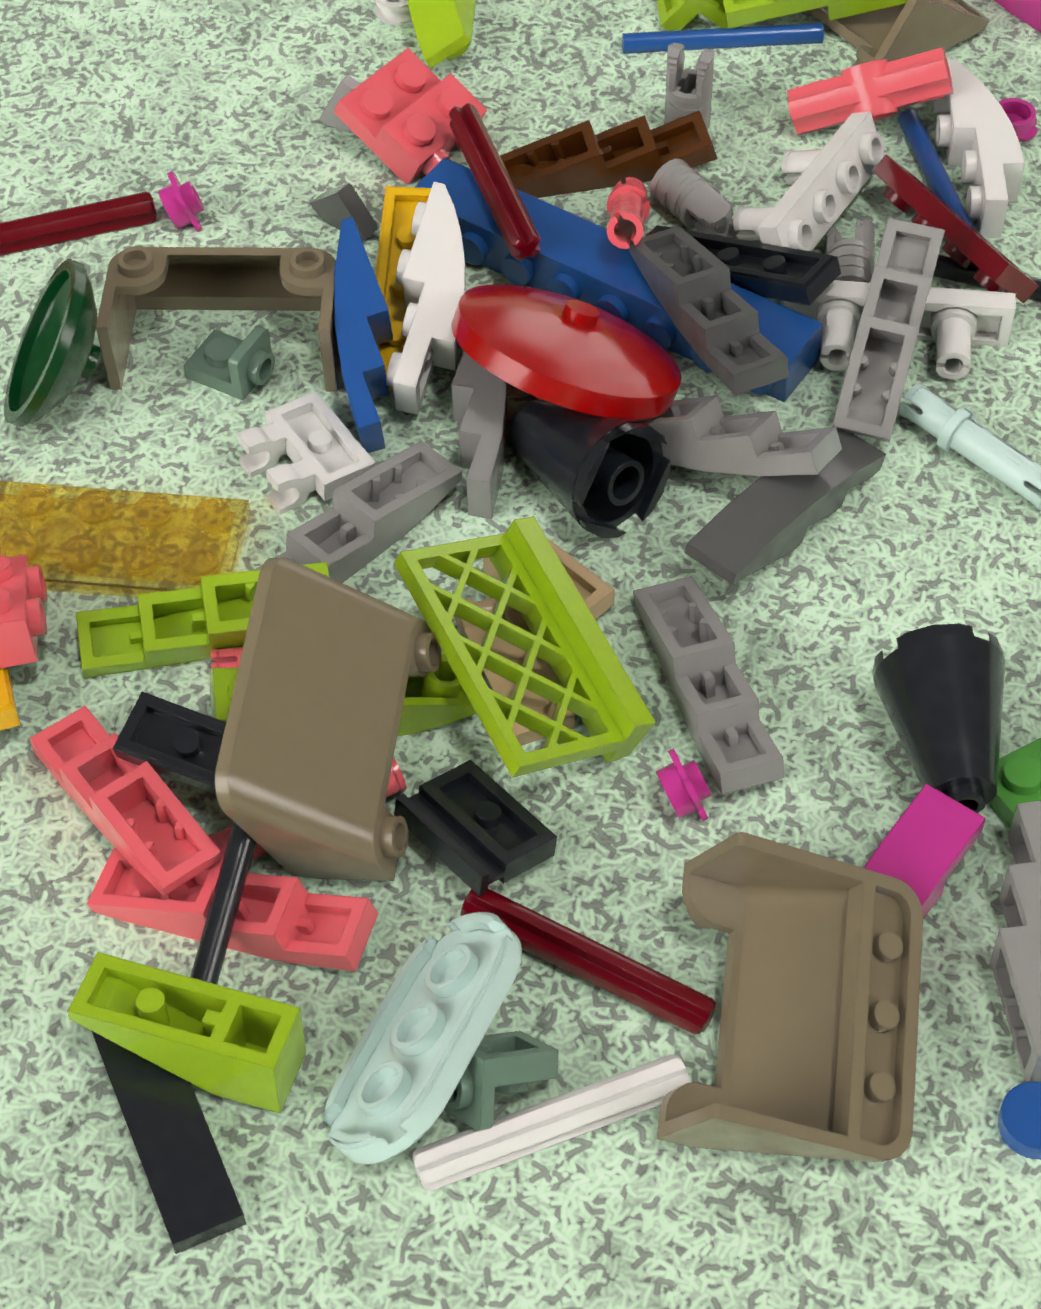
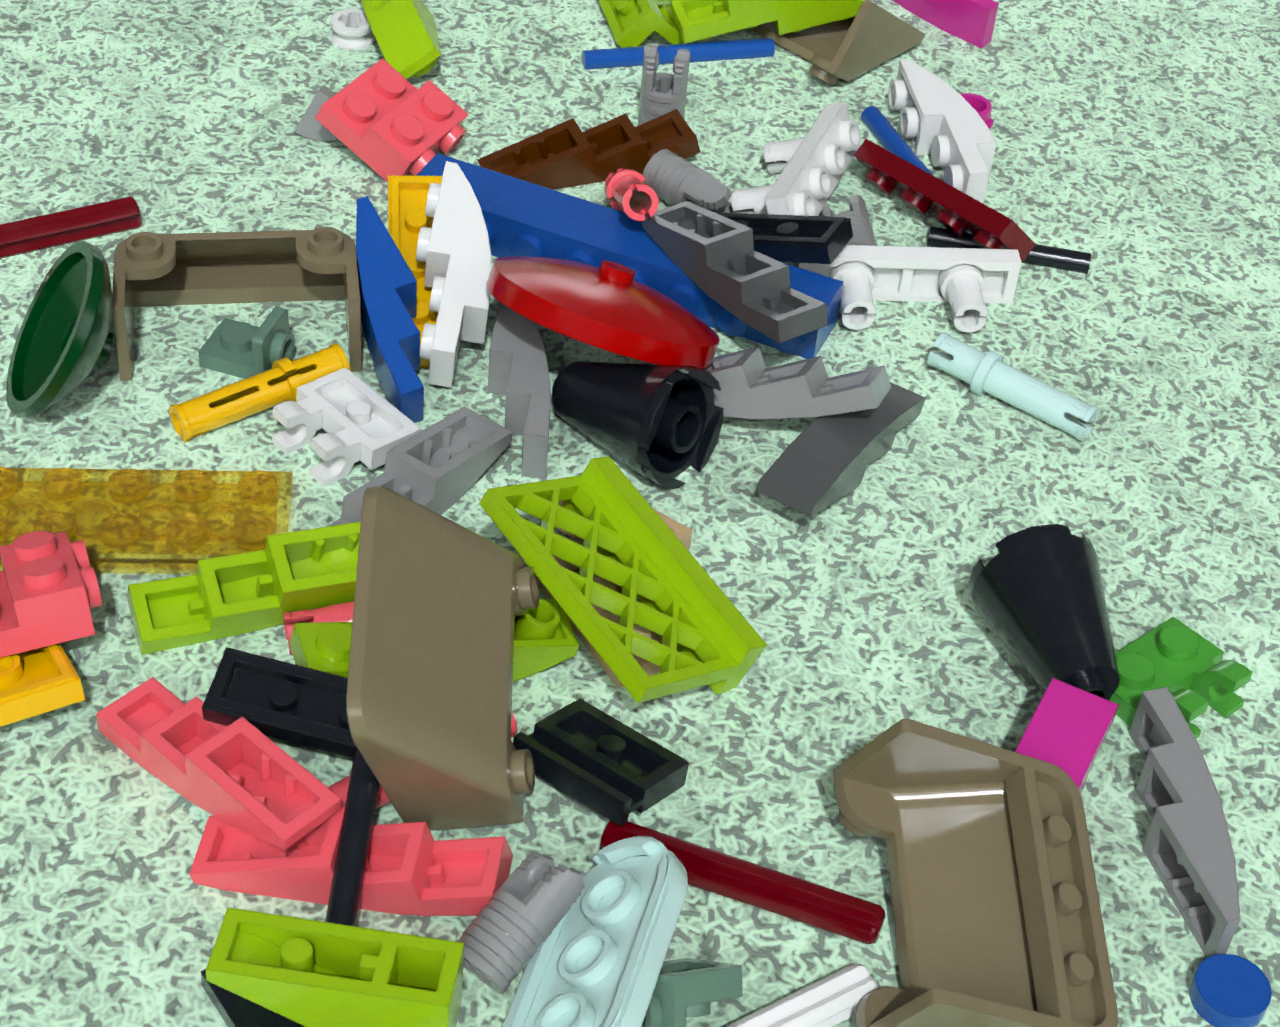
camera: 15 degrees left, 10 degrees down
(181, 202) = (168, 205): dark pink plate -> none
(229, 413) = (254, 393): none -> yellow pin
(342, 204) = (335, 206): dark grey tile -> none
(364, 982) = (519, 919): none -> light grey hinge
(494, 182) = (496, 170): dark red axle -> none
(684, 786) = (804, 707): dark pink plate -> none
(709, 685) = (806, 618): light grey slope -> none
(870, 87) = (837, 81): coral piece -> none
(888, 329) = (909, 283): light grey slope -> none

